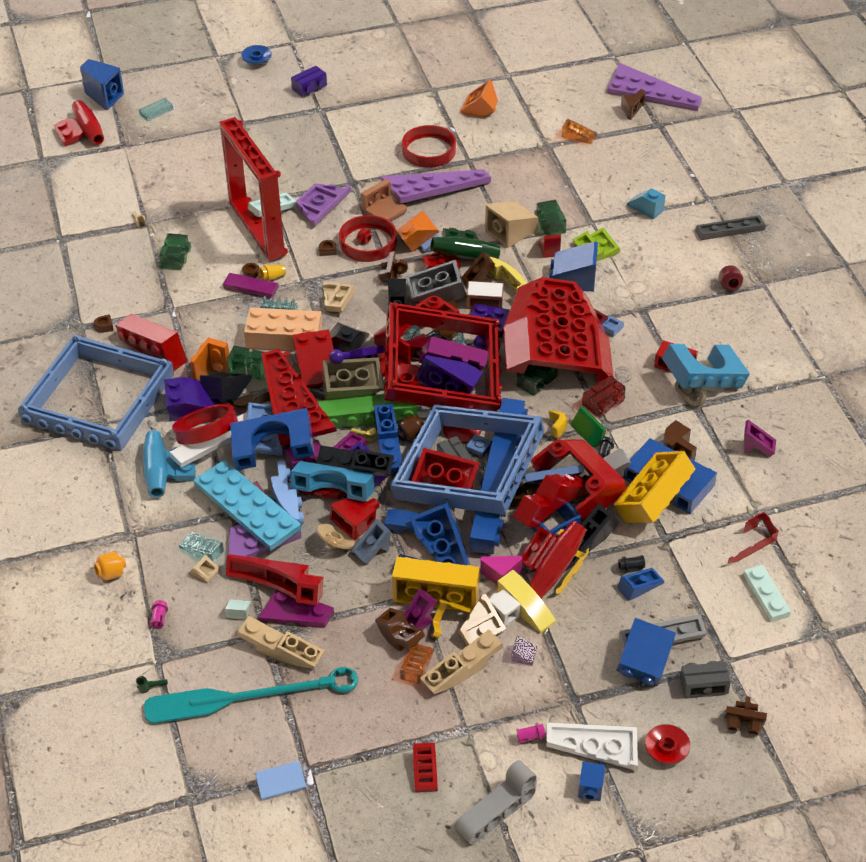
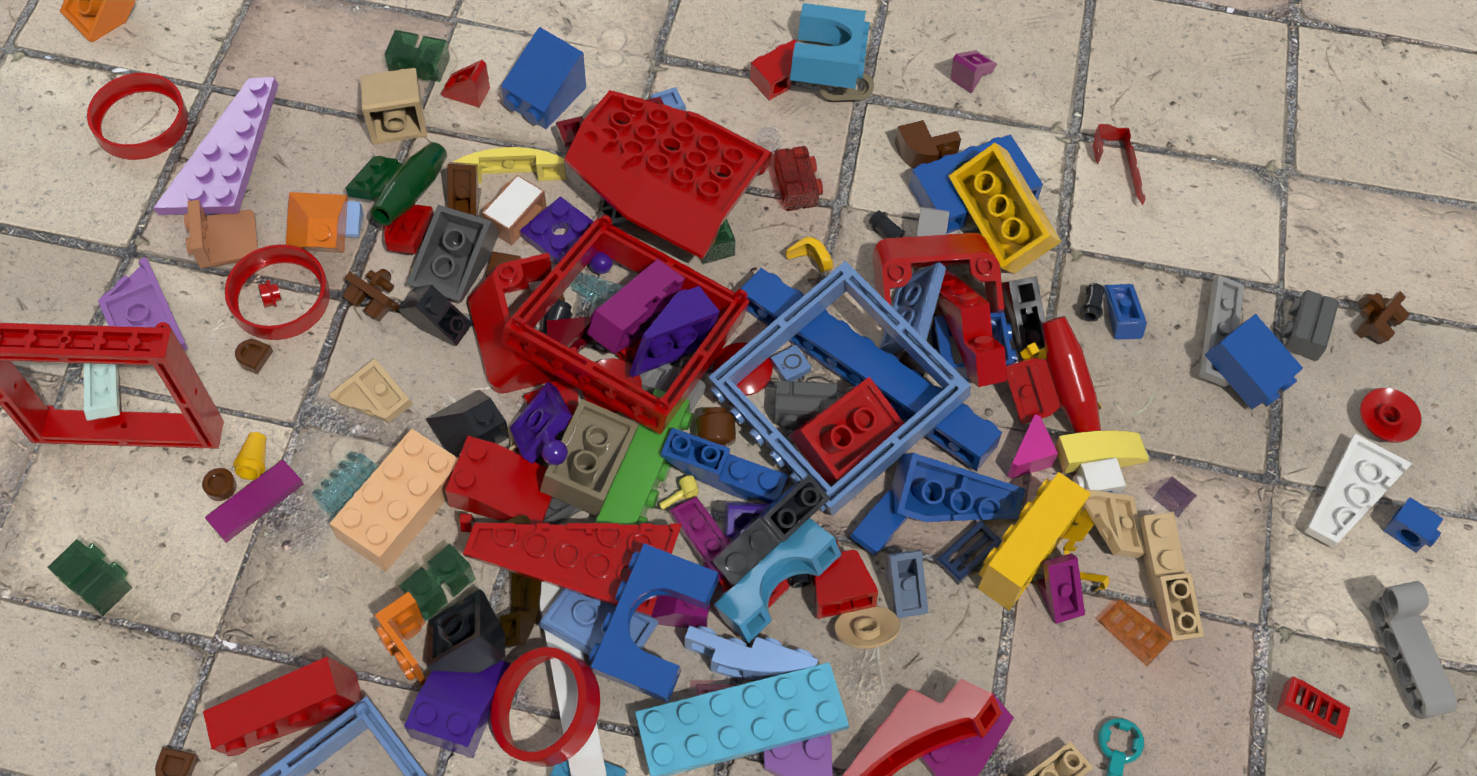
camera: 65 degrees left, 15 degrees up
(397, 630) = (1085, 628): reddish brown brick -> none
(531, 733) = (1310, 556): dark pink pin -> none
(588, 427) = (840, 224): green slope -> none
(606, 245) = (504, 35): lime slope -> none
(767, 593) = (1203, 194): light aqua plate -> none

